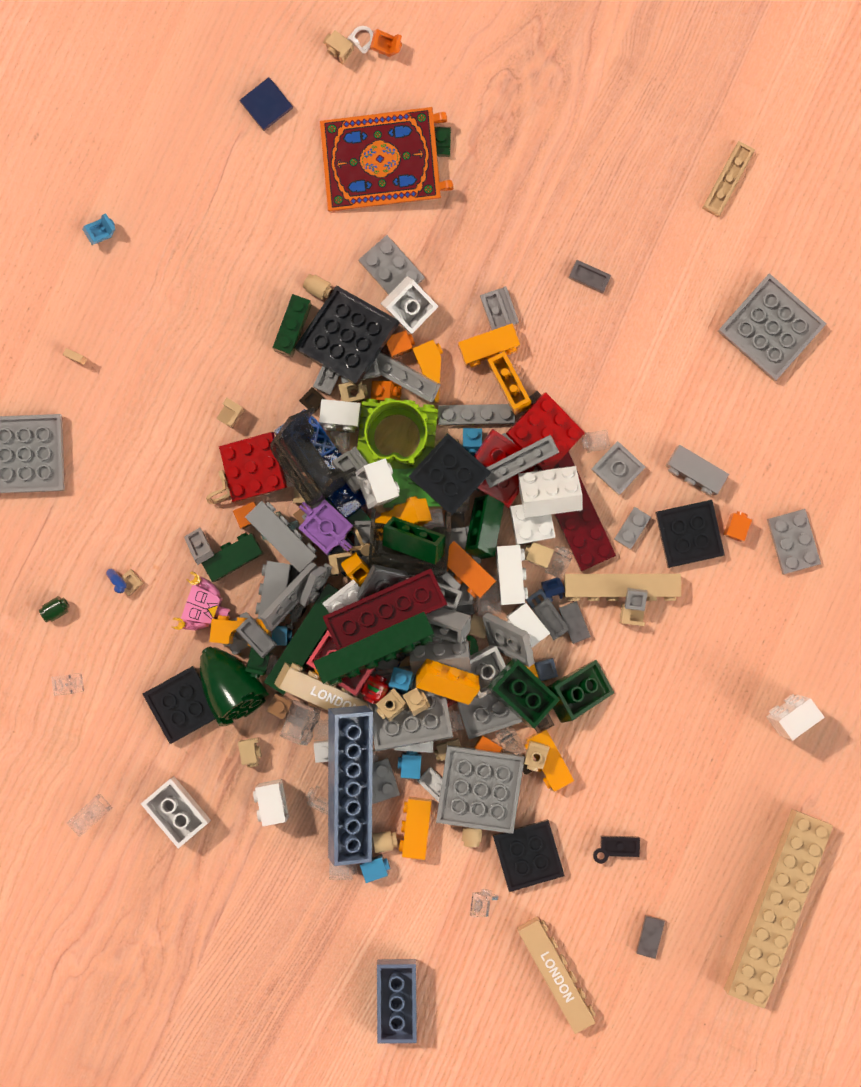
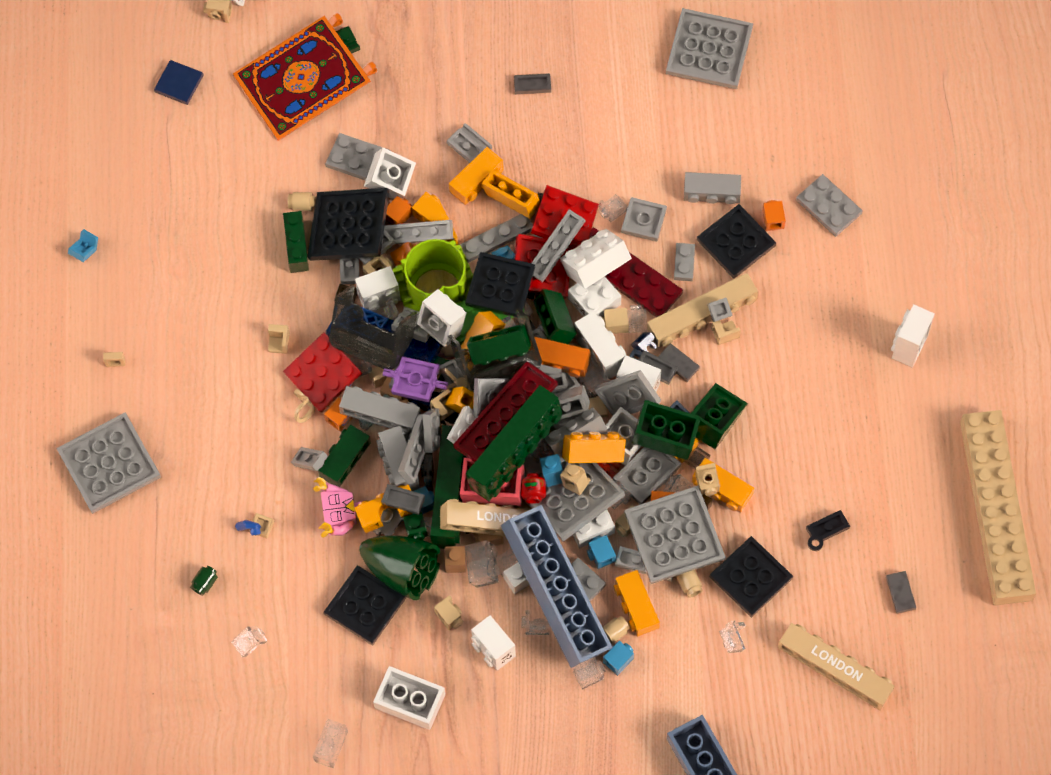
camera: 25 degrees left, 20 degrees down
(398, 705) = (555, 493): tan brick -> none

